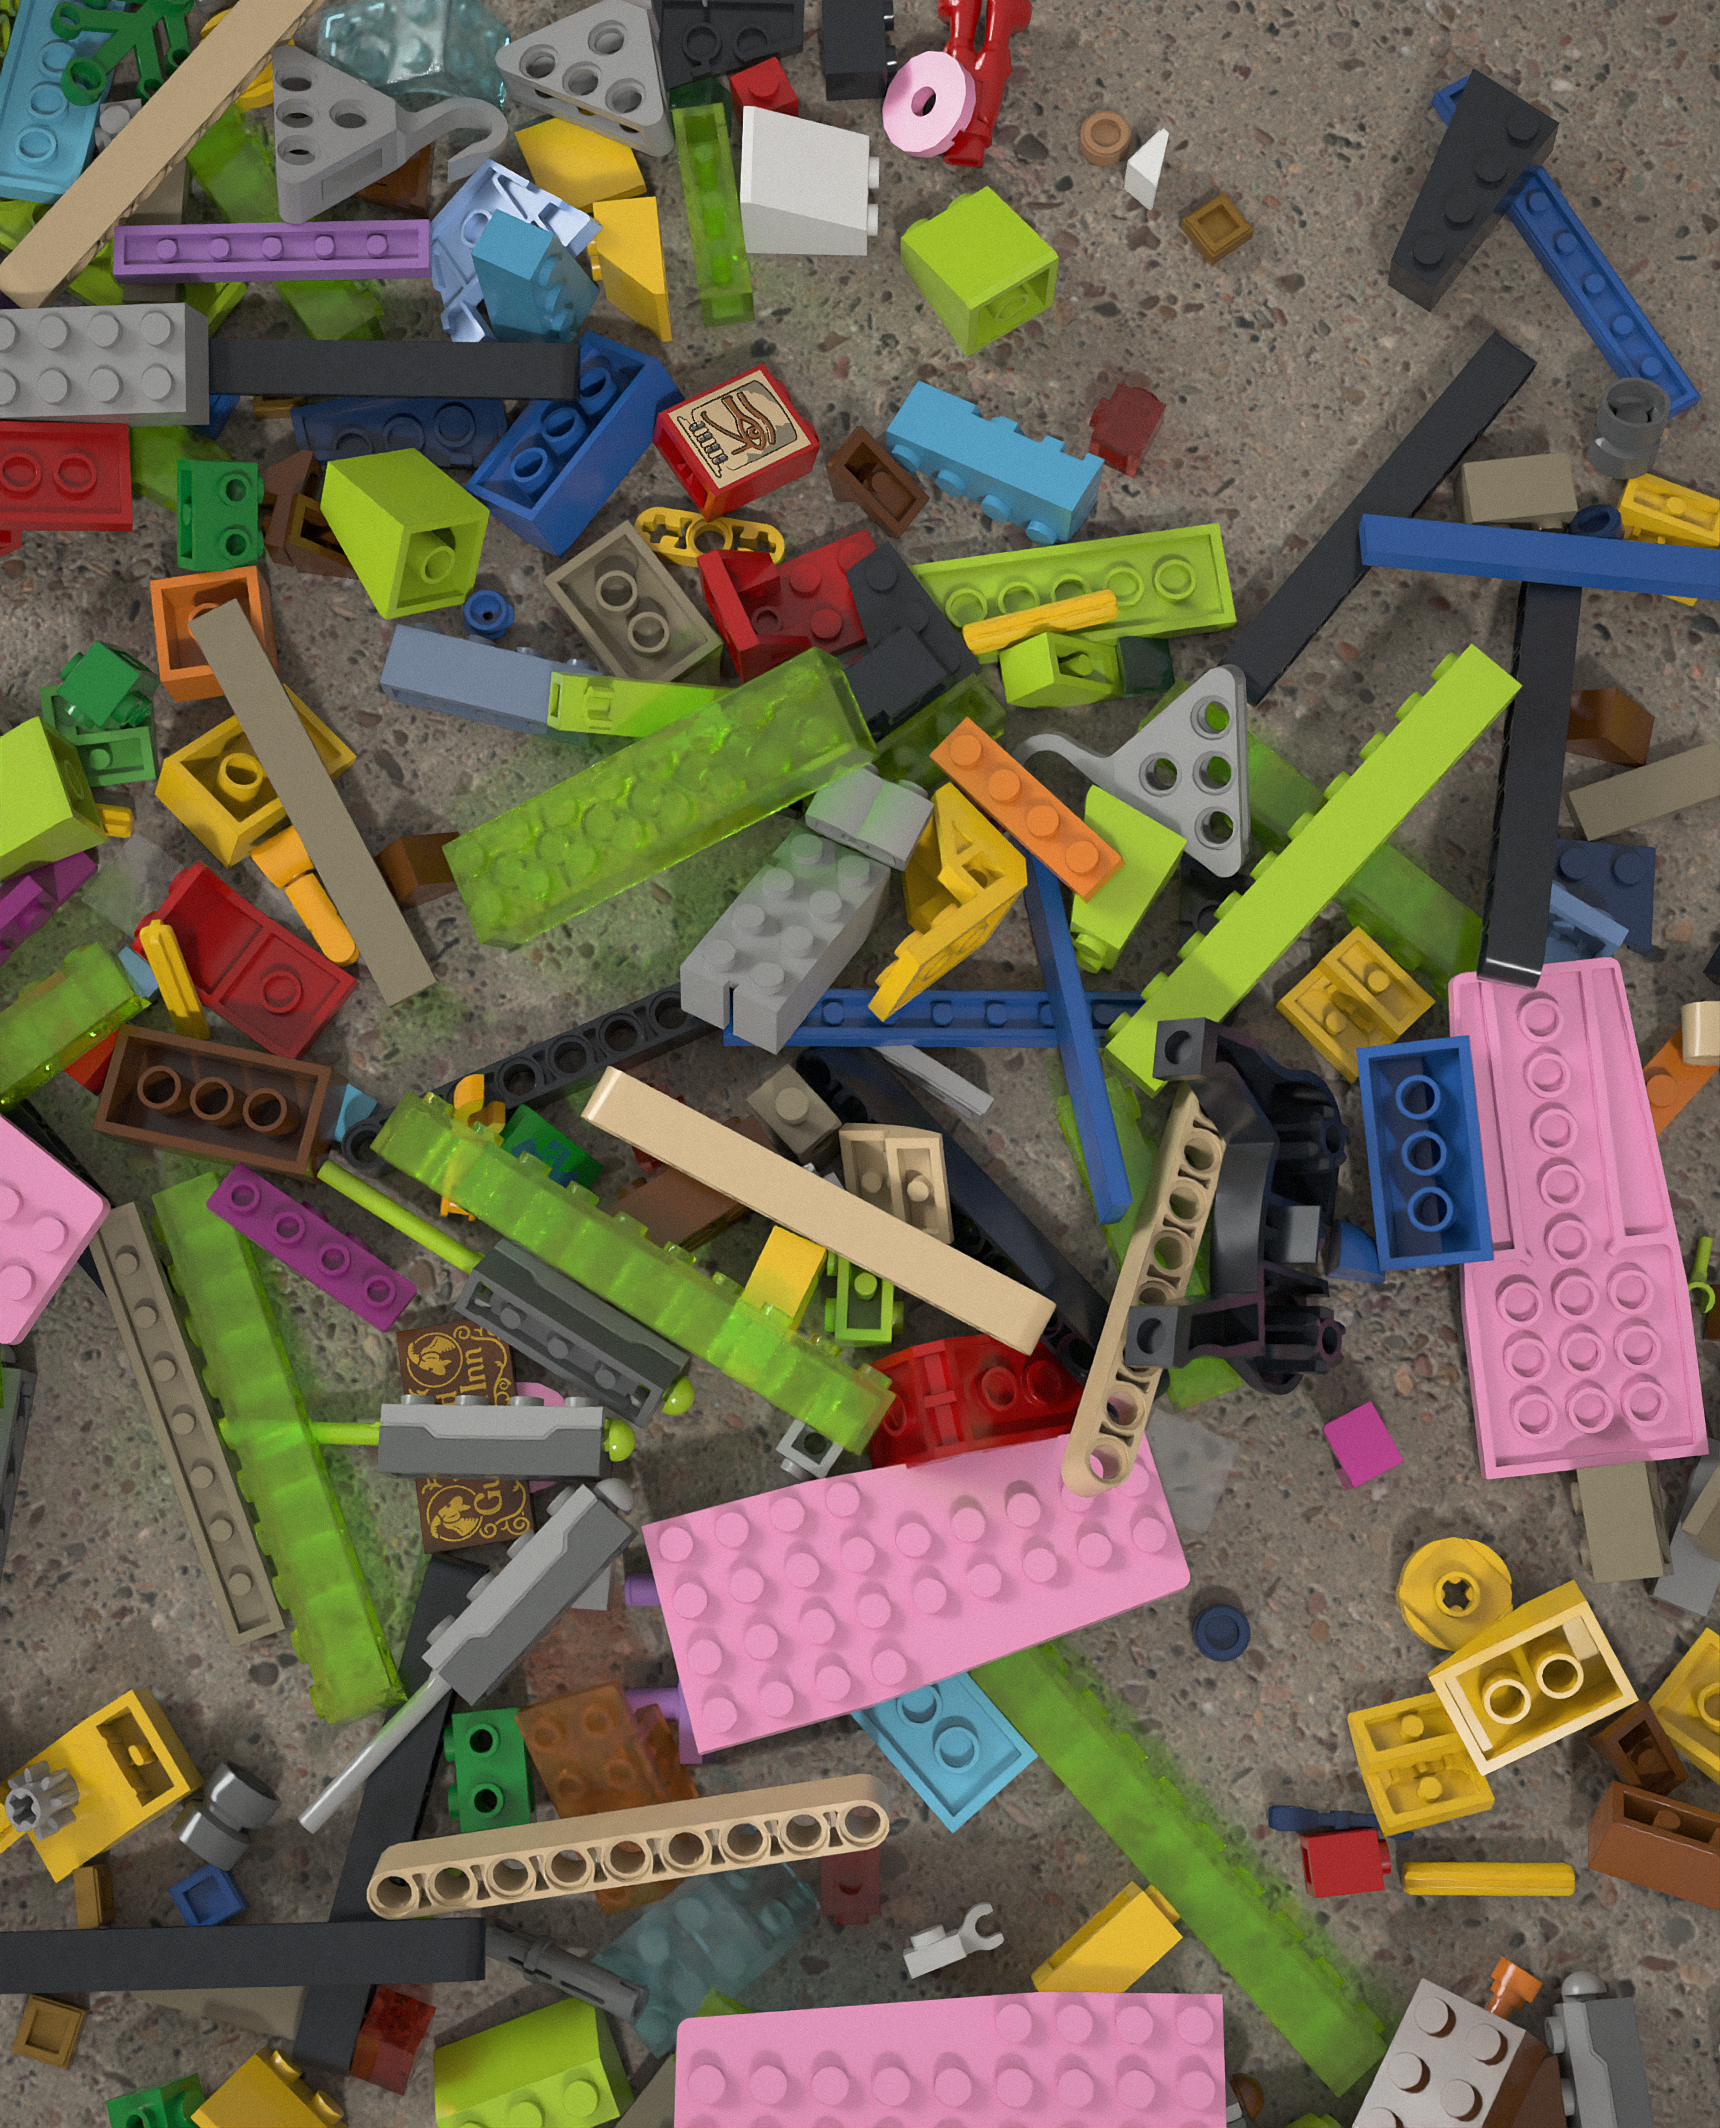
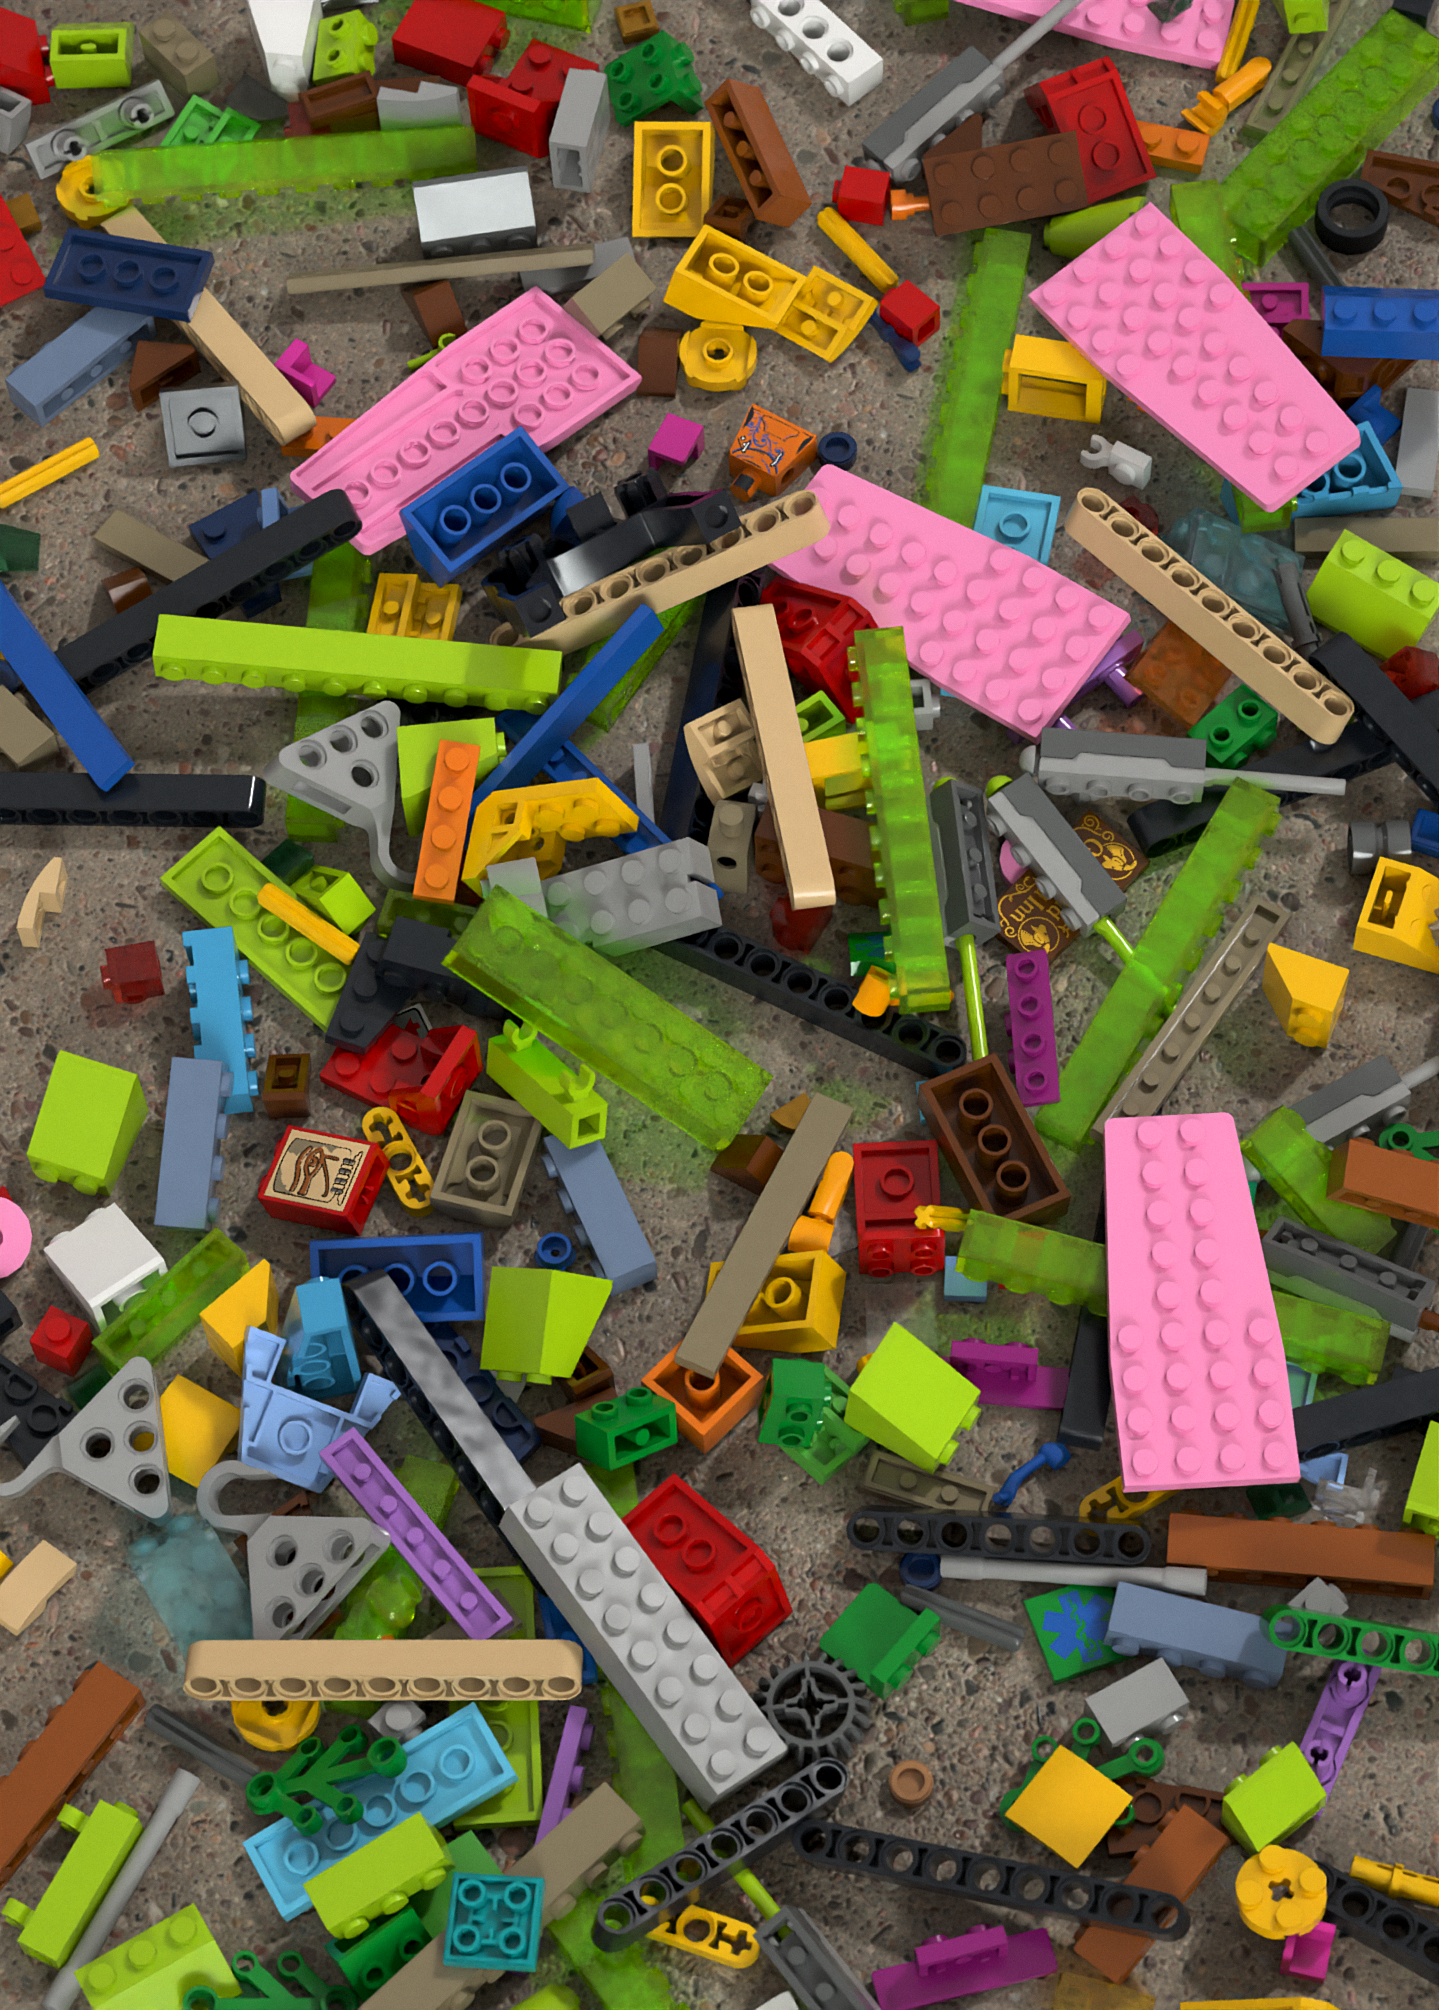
camera: 125 degrees left, 15 degrees down
(106, 1573) = (1304, 994): none -> yellow slope
(224, 182) = (393, 1603): none -> clear neon green animal
(445, 953) = (790, 1114): none -> pearl gold tile
(869, 338) = (192, 1145): none -> sand blue brick
(1270, 1541) = (768, 454): none -> orange torso
(1289, 406) = (44, 896): none -> tan slope
(1504, 1523) = (659, 361): none -> reddish brown slope
(1560, 1944) = (862, 195): none -> red brick

